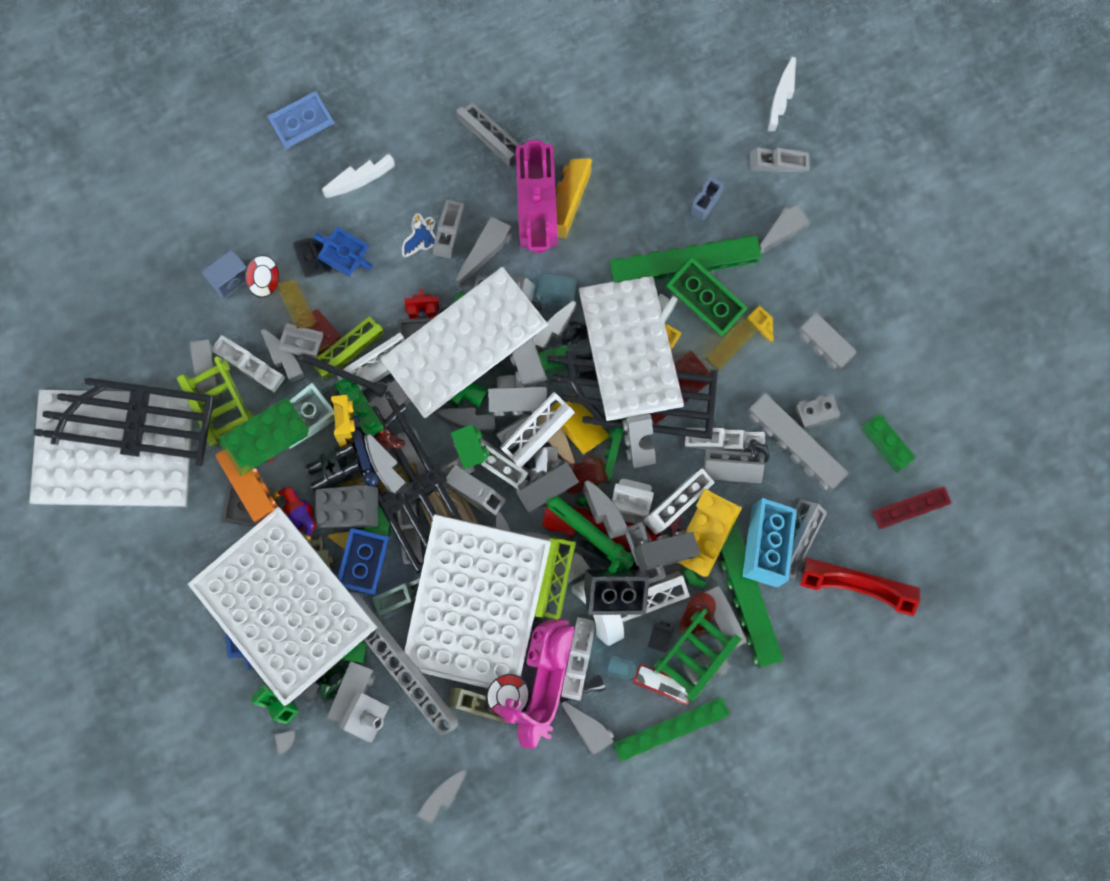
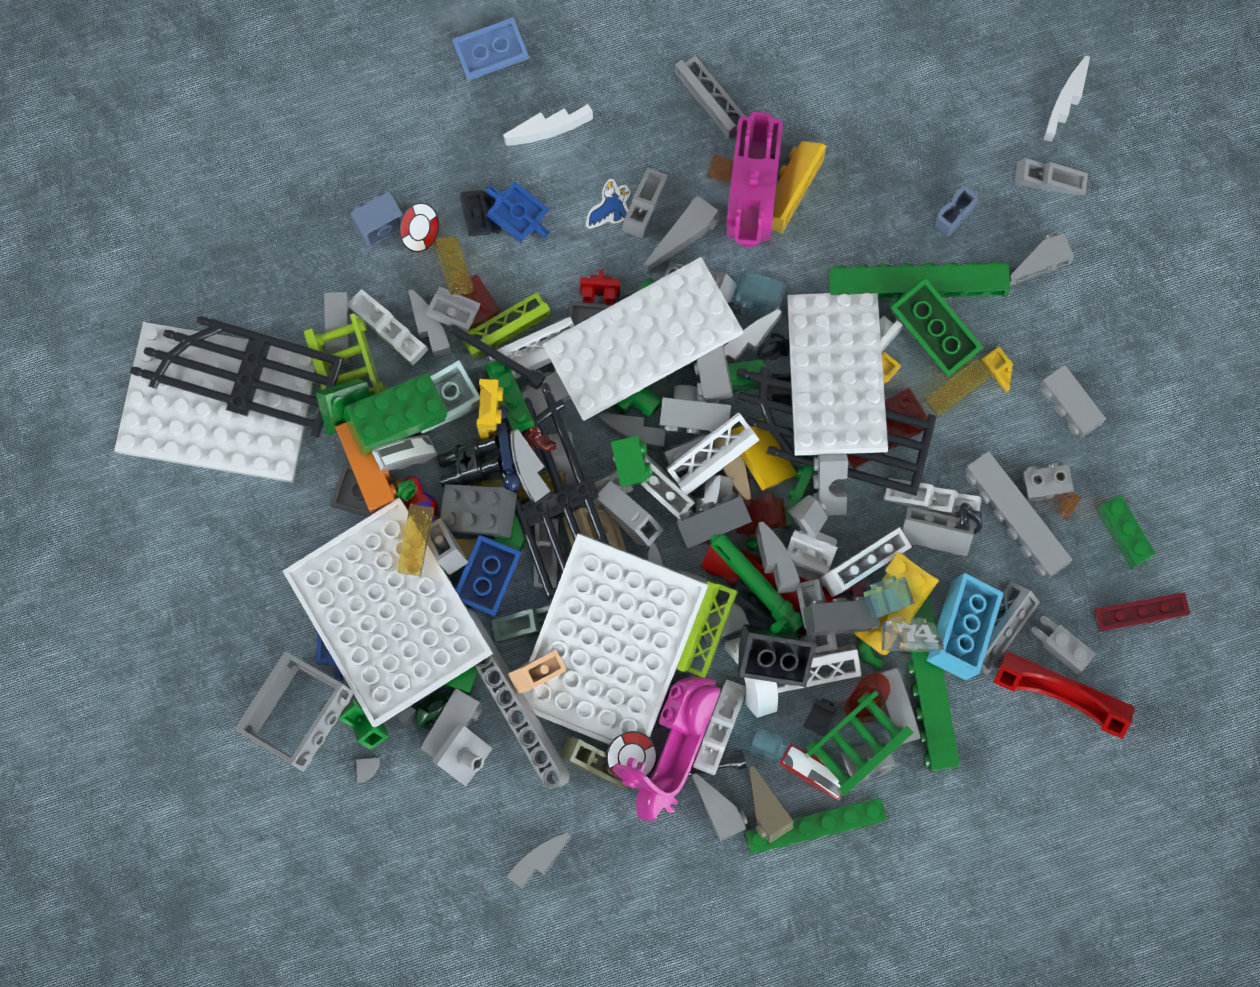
camera: 15 degrees right, 0 degrees up
(191, 694) = (270, 695): none -> light grey window
(211, 430) = (335, 398): none -> green slope
(277, 468) = (404, 453): none -> slope
(283, 499) = (406, 490): none -> green plate
(297, 541) = (415, 540): none -> clear yellow plate
(322, 542) = (445, 547): none -> light grey slope
(417, 637) = (537, 672): none -> light nougat slope
(507, 192) = (720, 169): none -> clear orange plate
(625, 469) = (809, 515): none -> light grey slope
(631, 725) = (770, 815): none -> dark tan slope
(703, 528) = (888, 596): none -> clear light blue brick
(726, 557) = (910, 636): none -> clear slope
(837, 428) = (1068, 505): none -> clear orange plate
(853, 546) = (1064, 646): none -> light grey hinge

